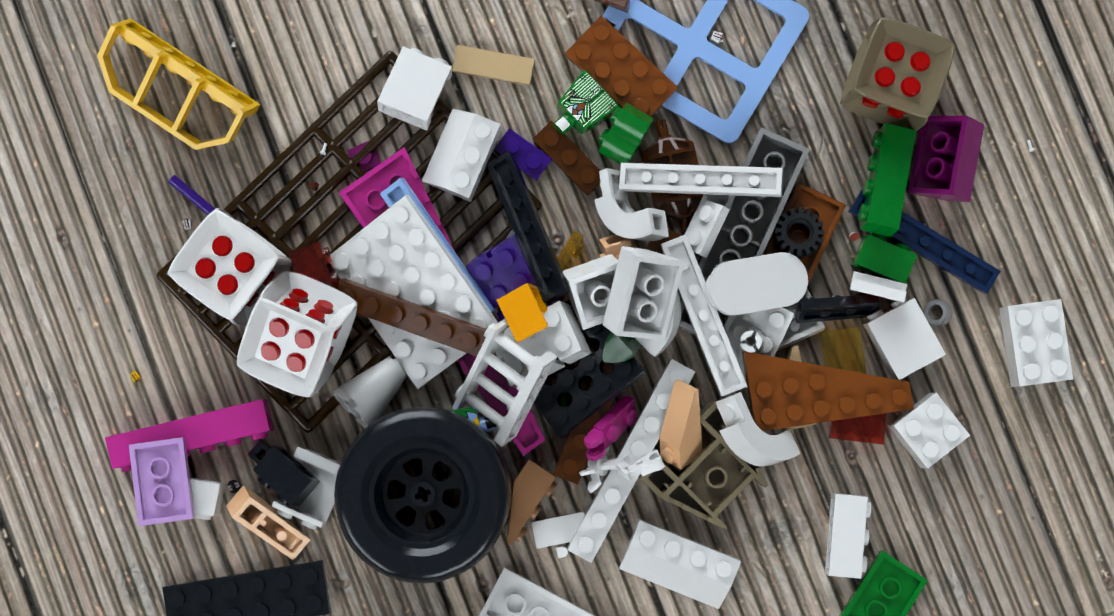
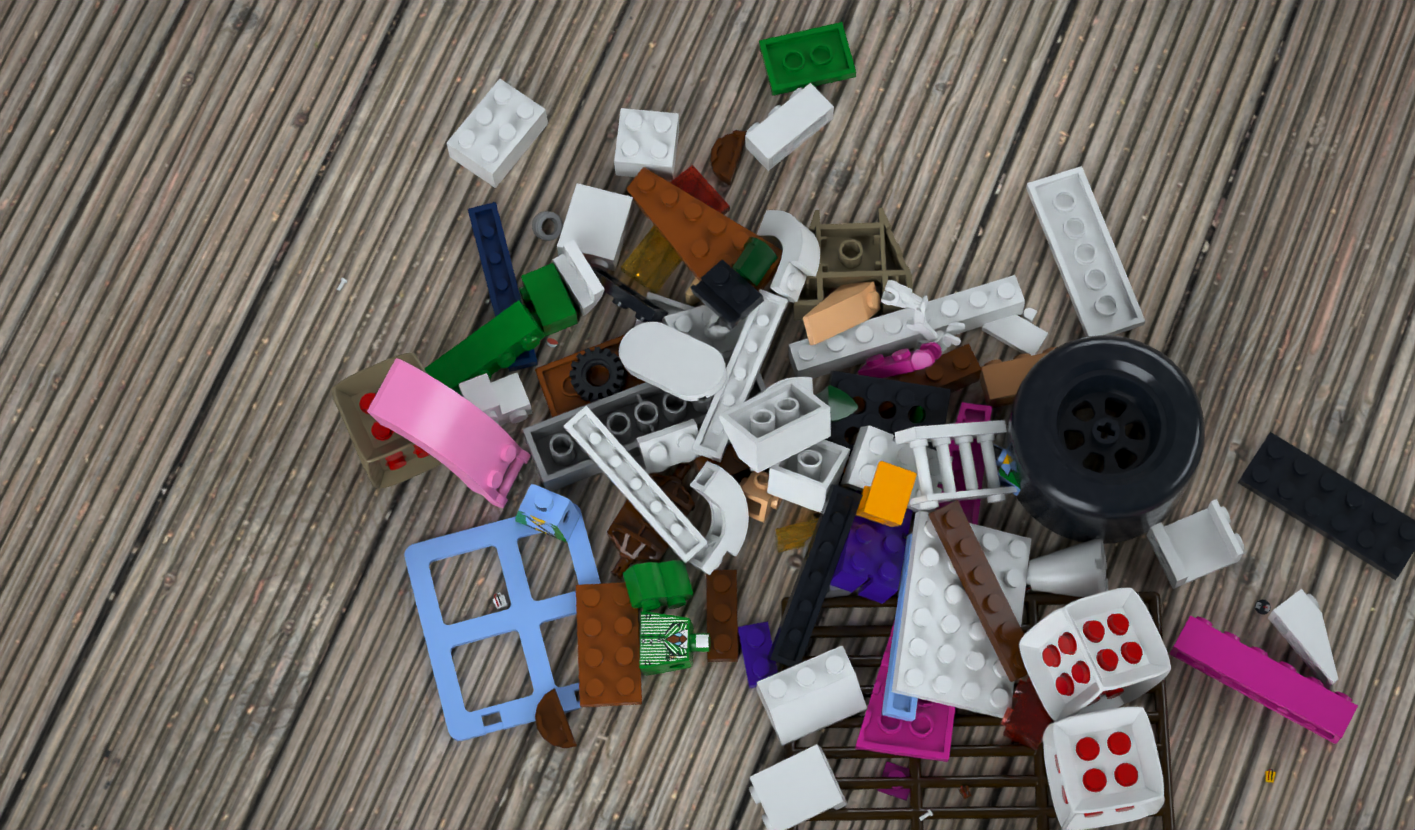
camera: 140 degrees left, 15 degrees down
(161, 481) = (1322, 651): lavender plate -> none
(265, 522) = (1262, 554): light nougat slope -> none
(282, 473) = (1210, 574): black brick -> none
(493, 65) = (710, 753): tan tile -> none
(679, 564) = (941, 221): white slope -> none
(739, 113) = (546, 511): none -> light blue torso
(765, 362) = (727, 293): none -> black plate
(768, 400) = (755, 260): none -> dark green tile
(850, 150) = (501, 399): none -> white brick
(852, 90) = (449, 430): none -> bright pink windscreen
(869, 477) = (726, 155): none -> reddish brown tile
(946, 158) = (421, 324): magenta slope -> none

